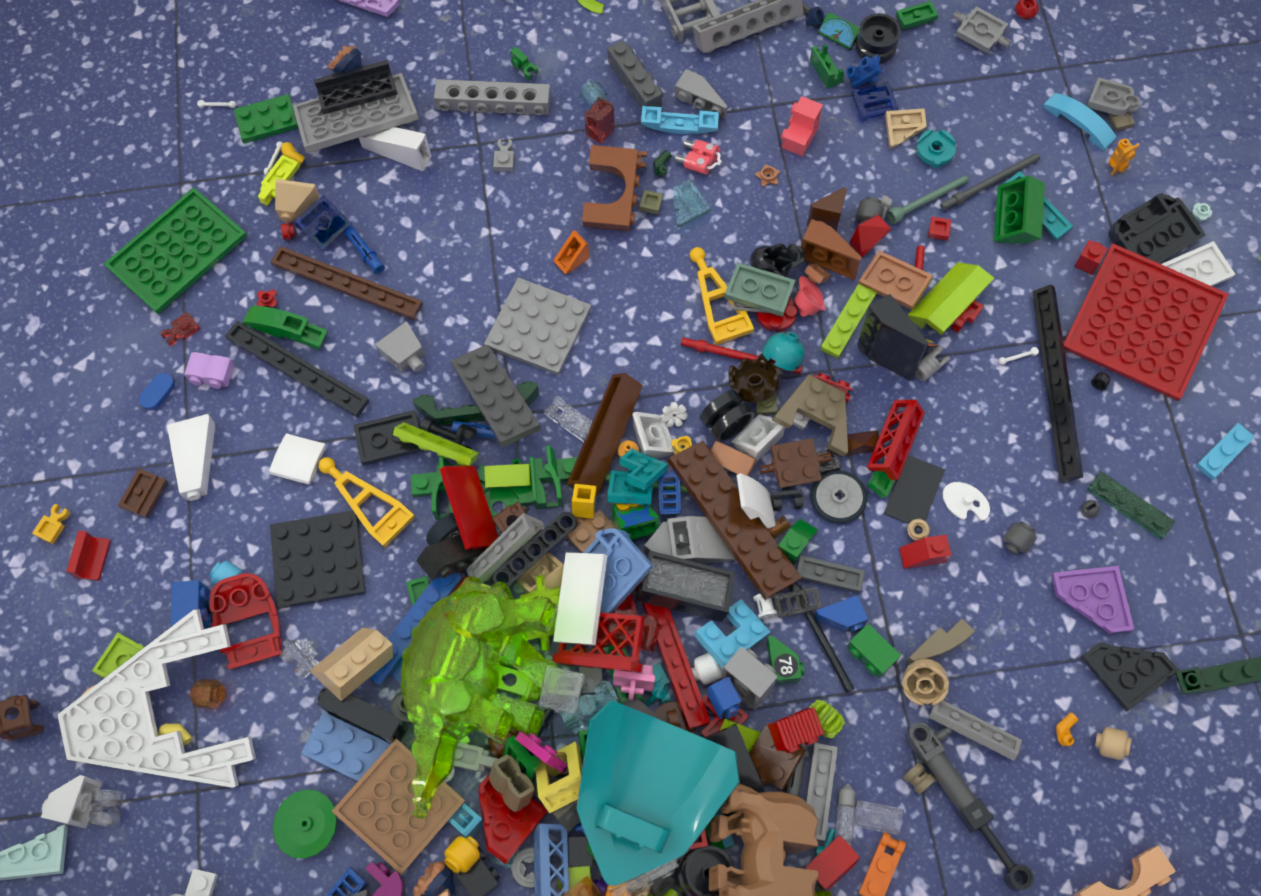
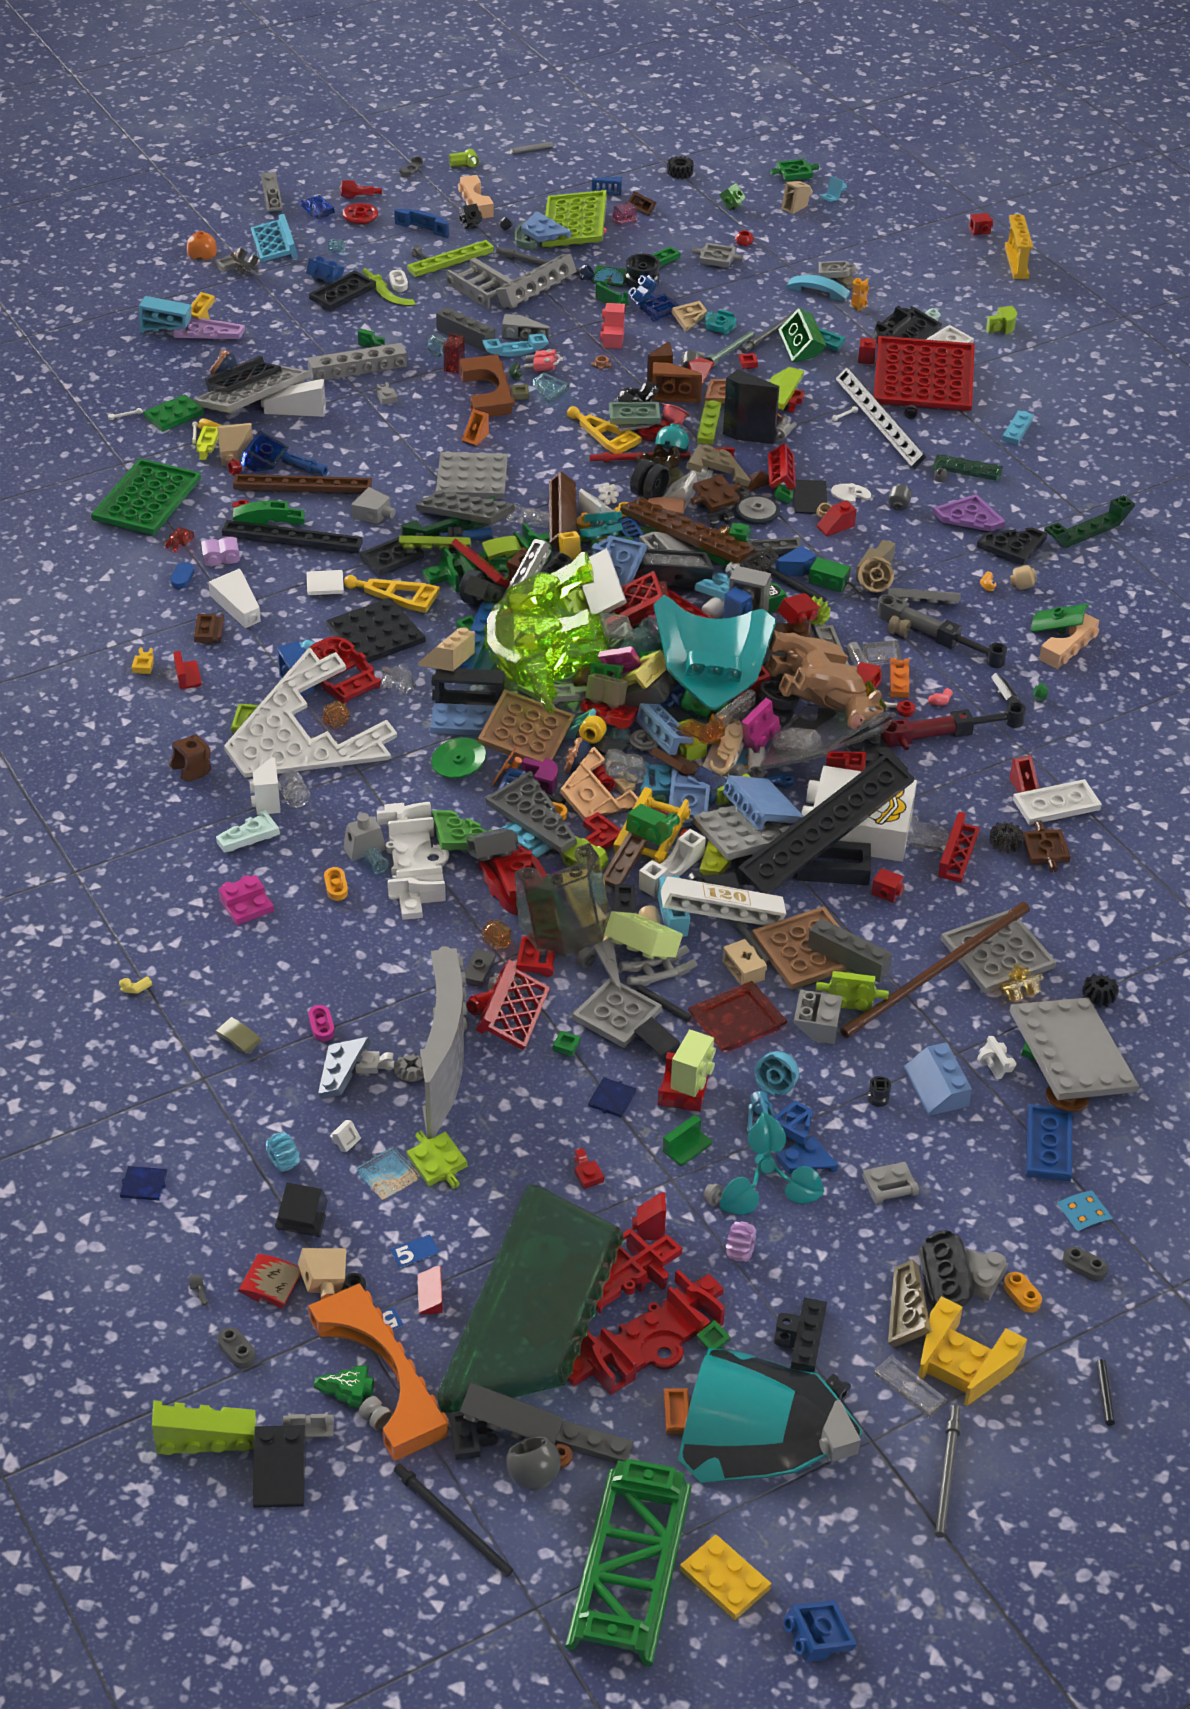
camera: 25 degrees left, 25 degrees down
(350, 861) = (515, 764): none -> orange shield
(755, 500) = (698, 515): white slope -> none
(817, 273) = (666, 399): nougat plate -> none
(1129, 840) = (1059, 618): none -> green shield

